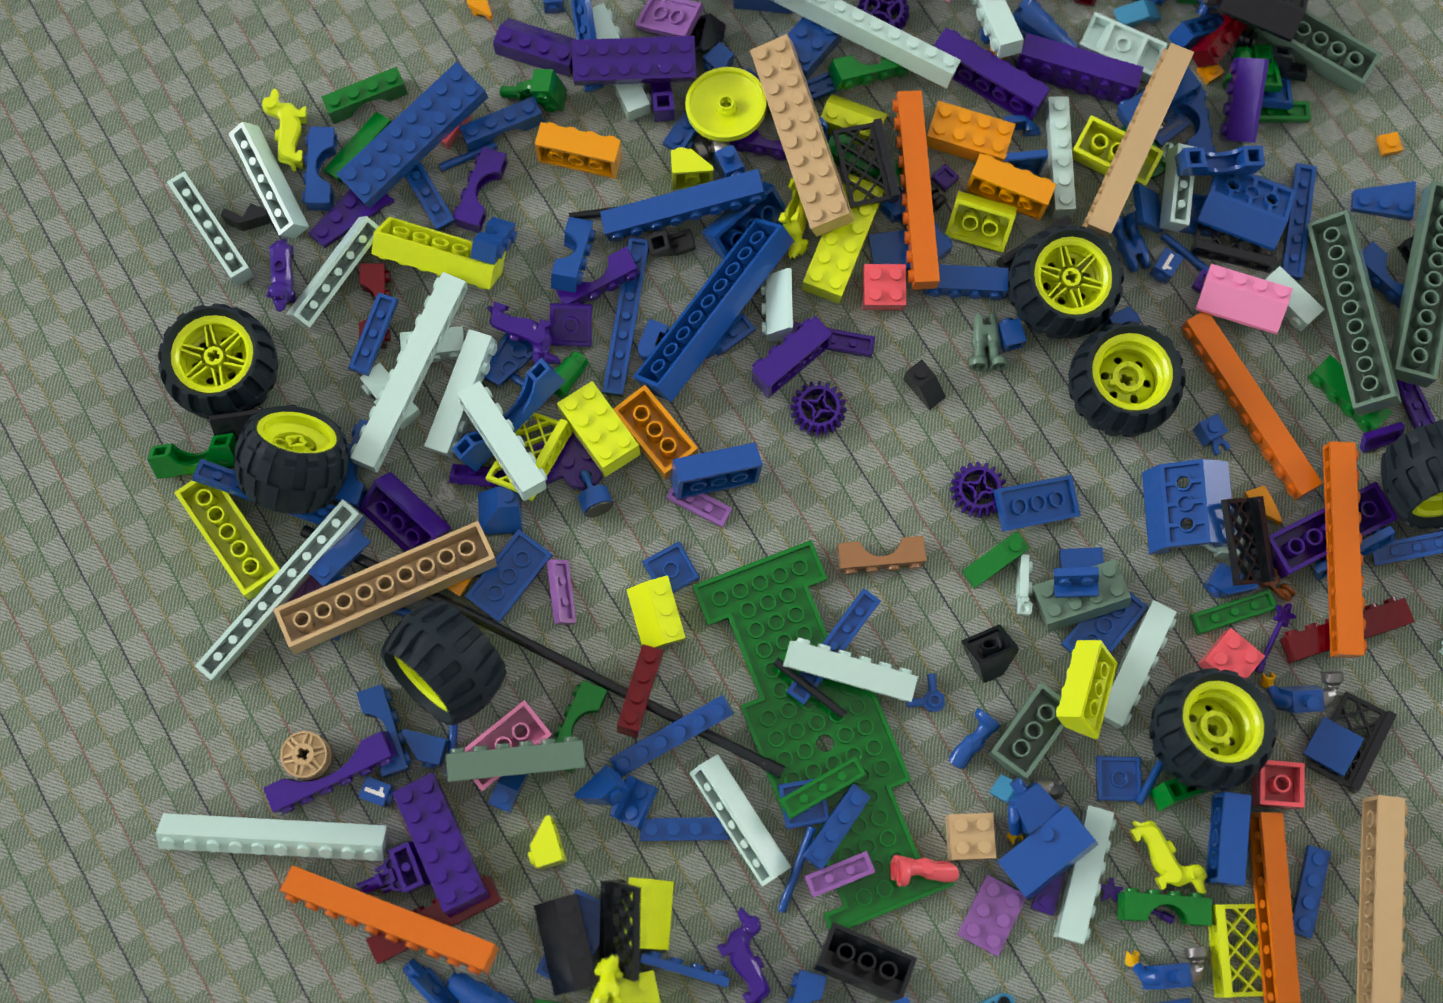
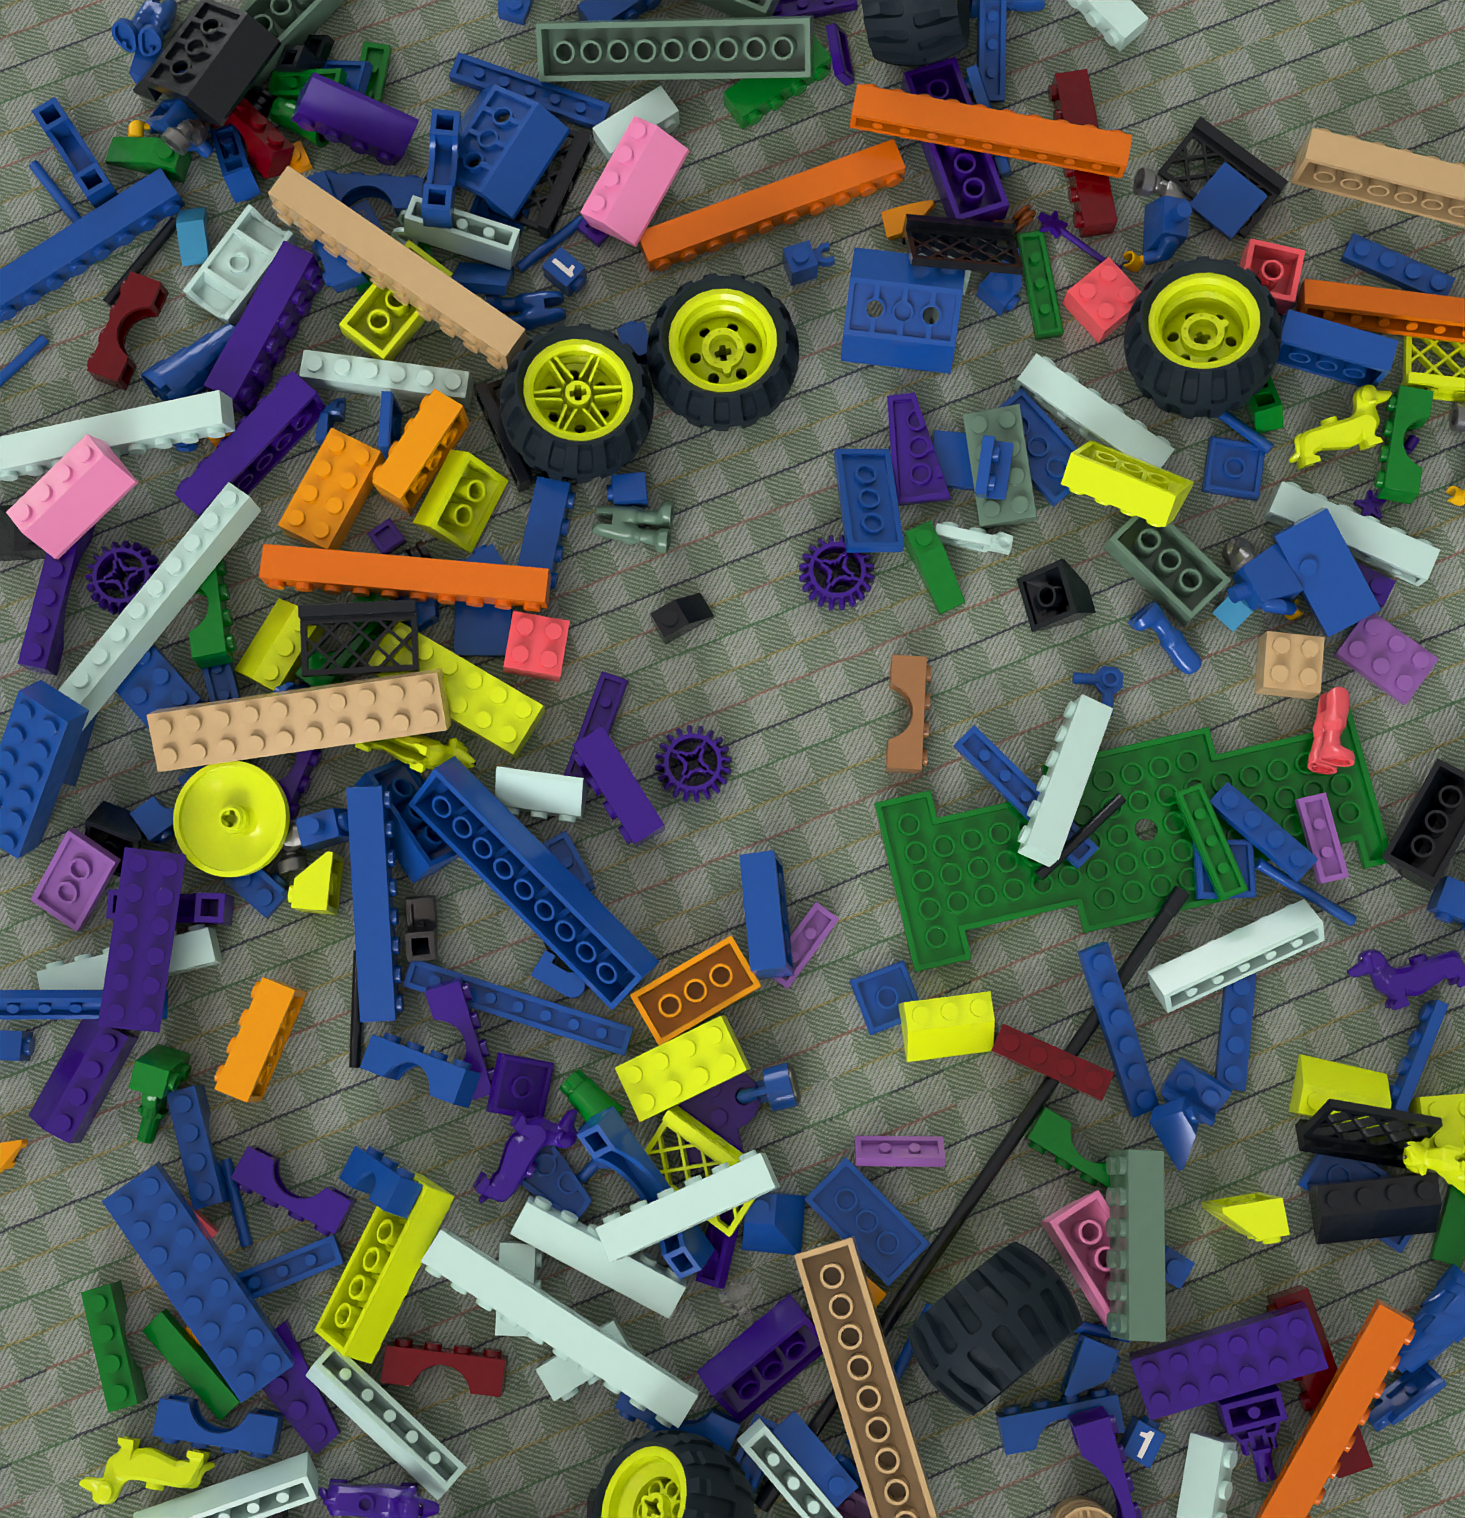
camera: 75 degrees left, 5 degrees up
(373, 334) = (492, 1373): blue tile -> none
(1078, 533) = (912, 454): none -> dark purple wing

